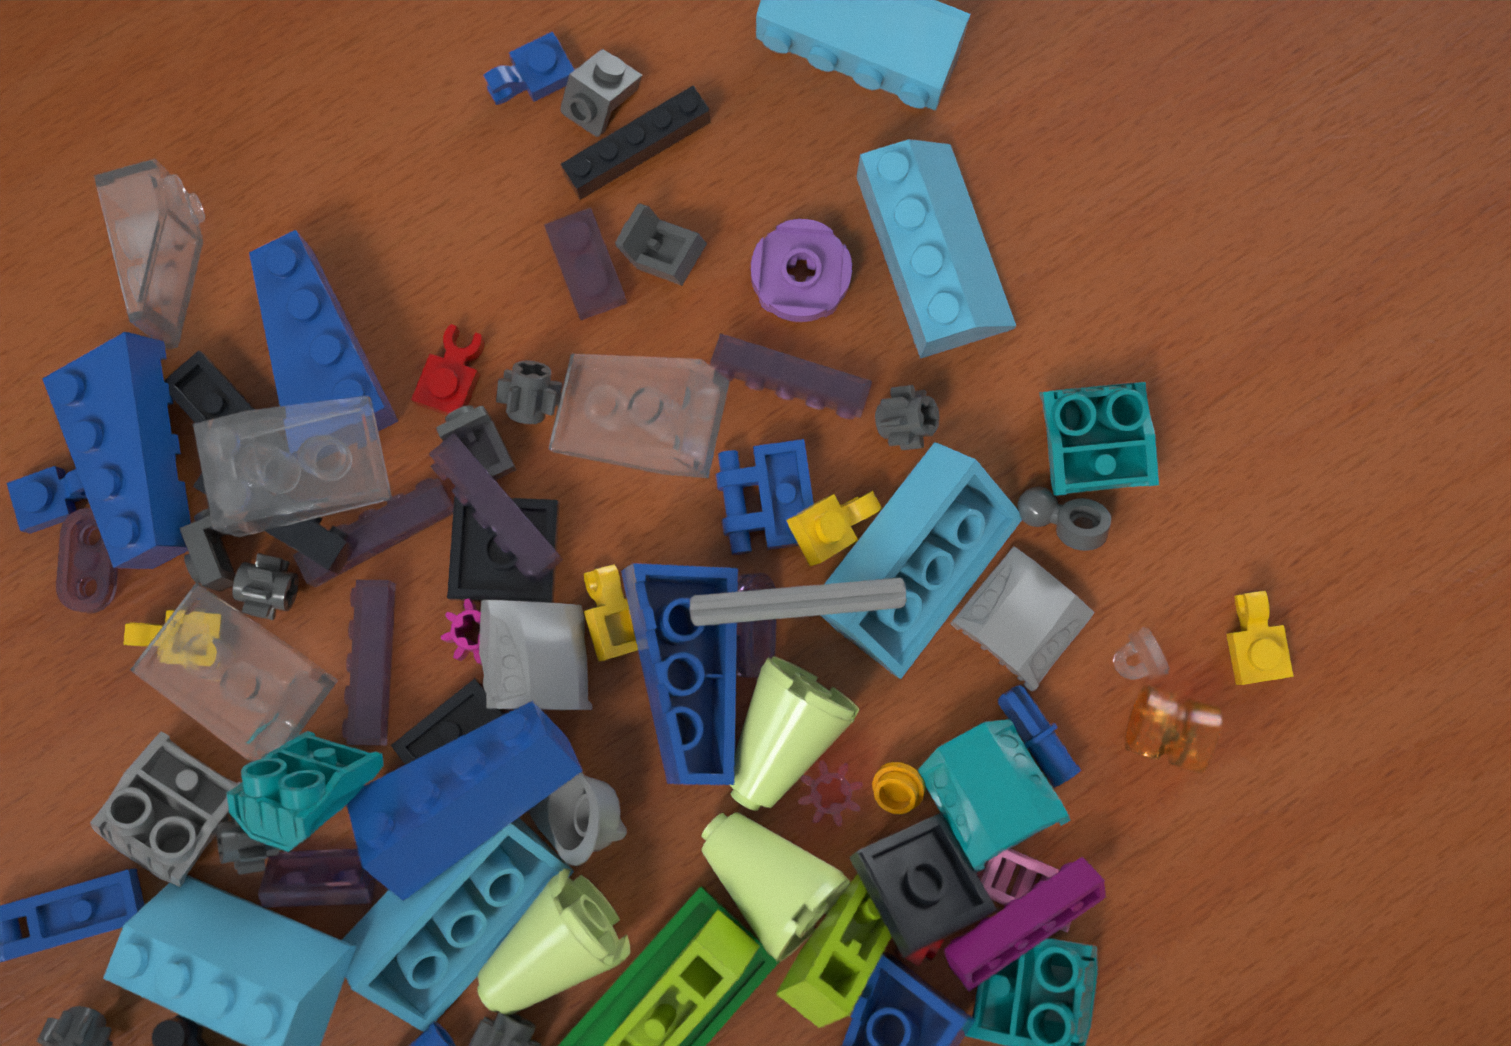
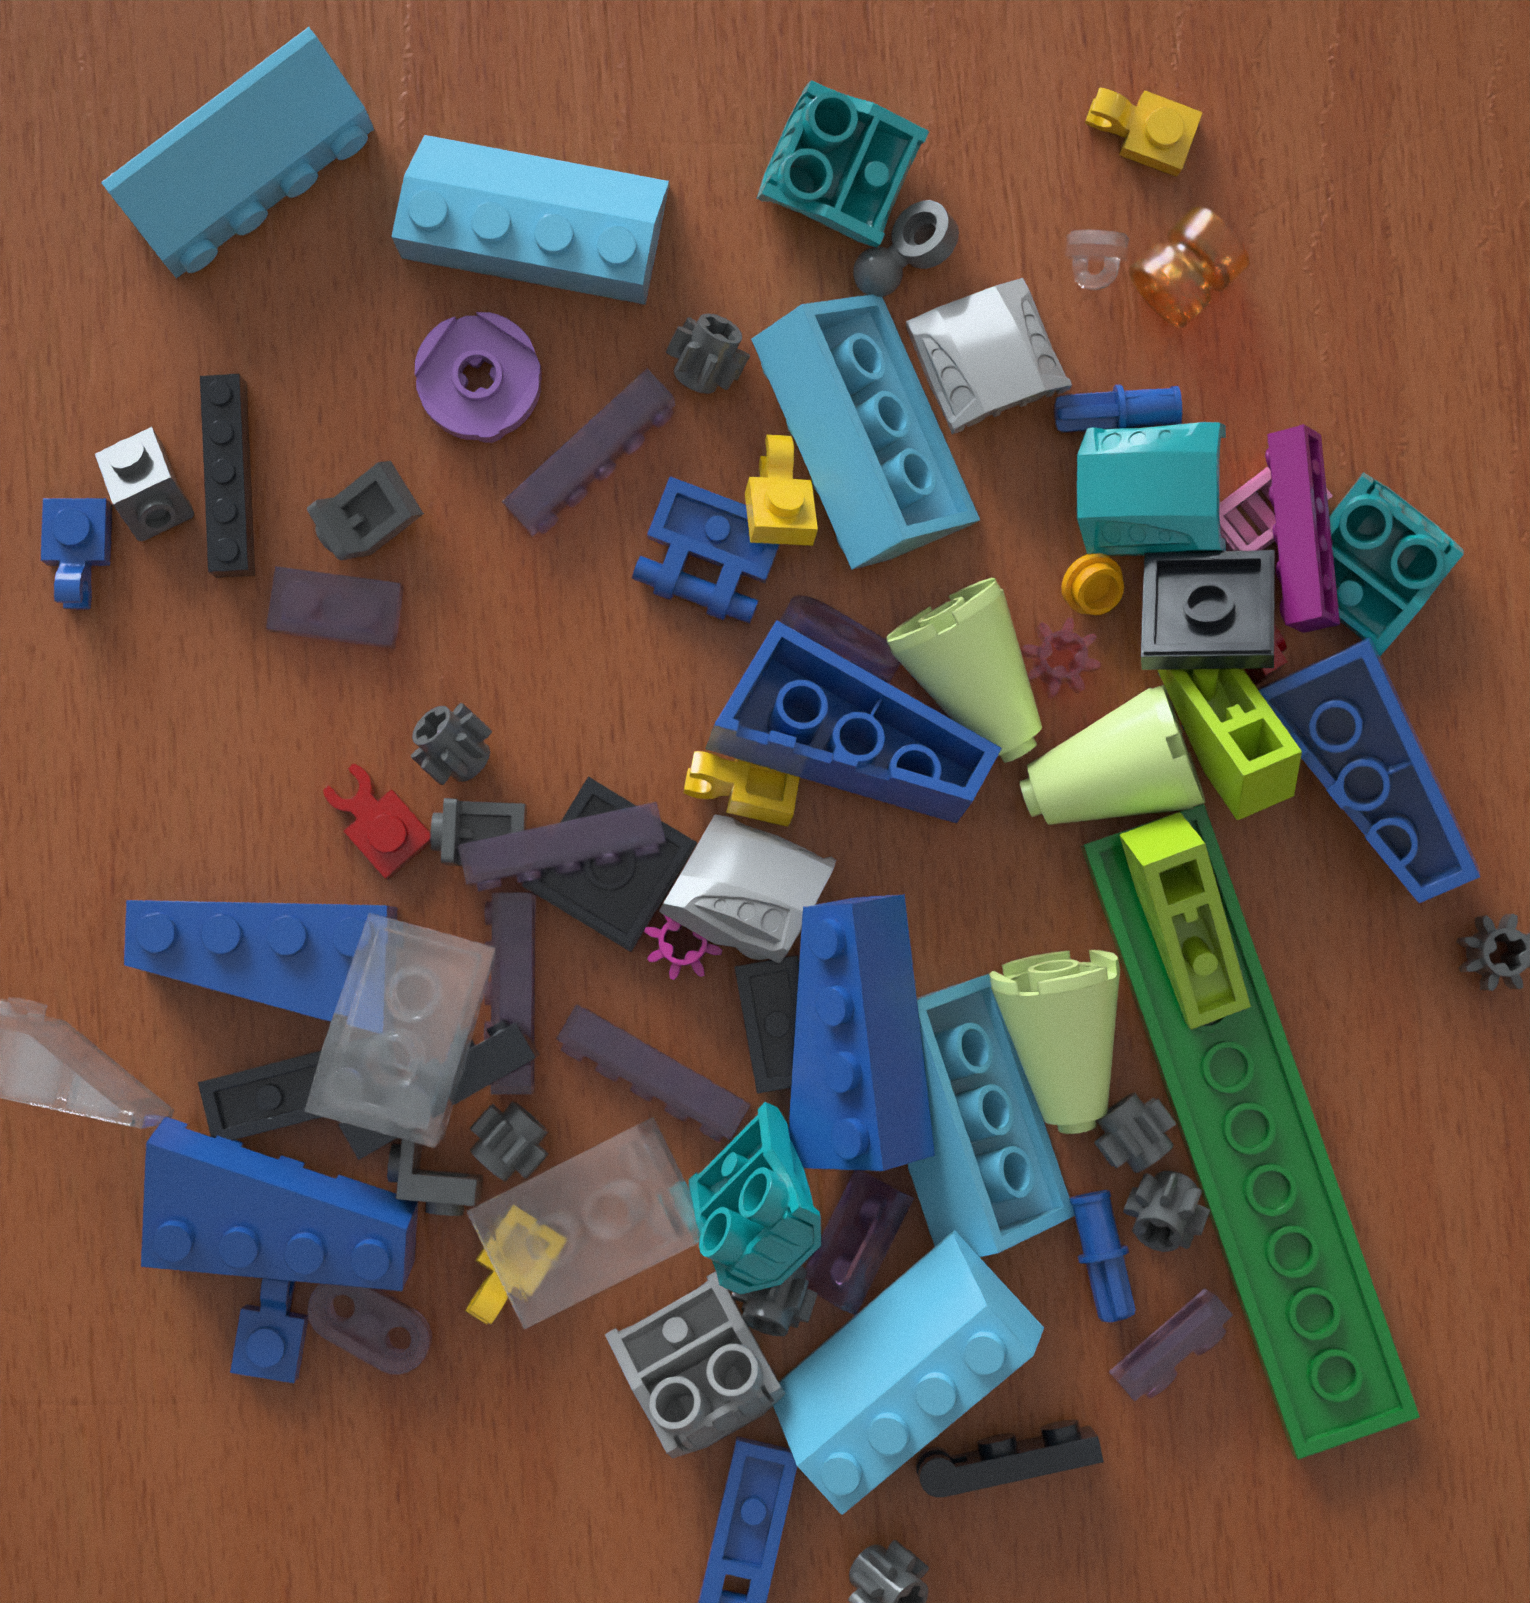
camera: 65 degrees left, 5 degrees up
(580, 818) = (949, 931): light grey piece -> none
(641, 413) = (540, 636): clear slope -> none
(798, 601) = (851, 573): light grey axle -> none

